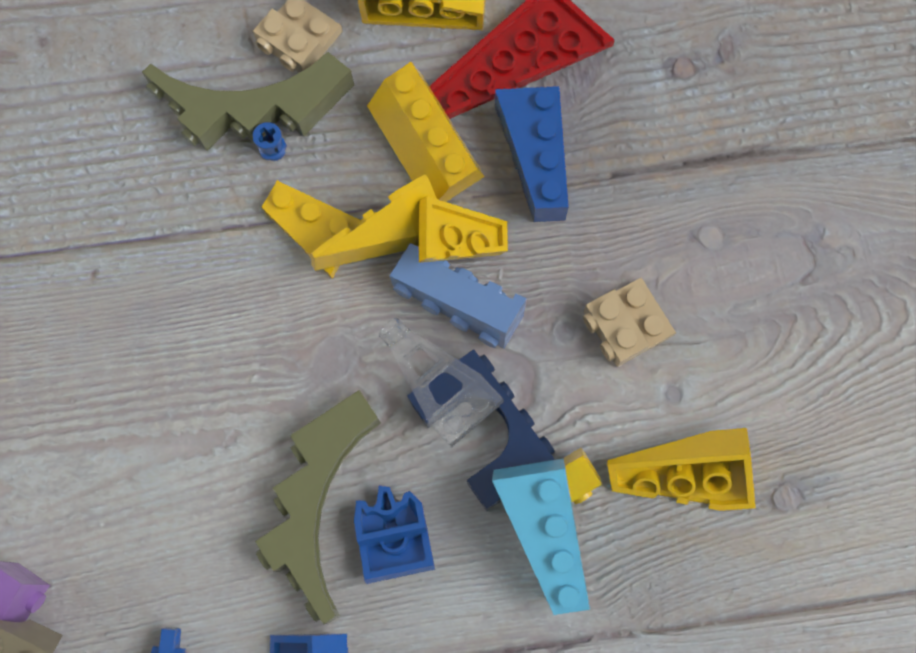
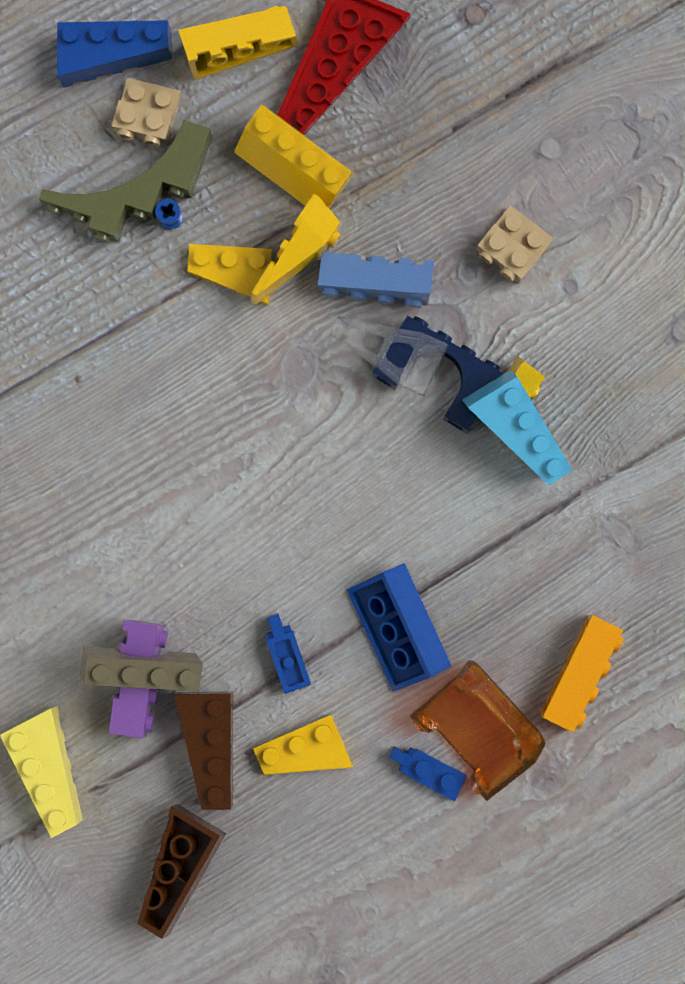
camera: 25 degrees left, 10 degrees up
(302, 495) = (335, 516): olive arch -> none
(392, 537) = (406, 480): blue plate -> none
(458, 232) = (356, 228): yellow wing -> none
(535, 138) = (383, 126): blue wedge -> none
(699, 468) = (612, 335): yellow wedge -> none

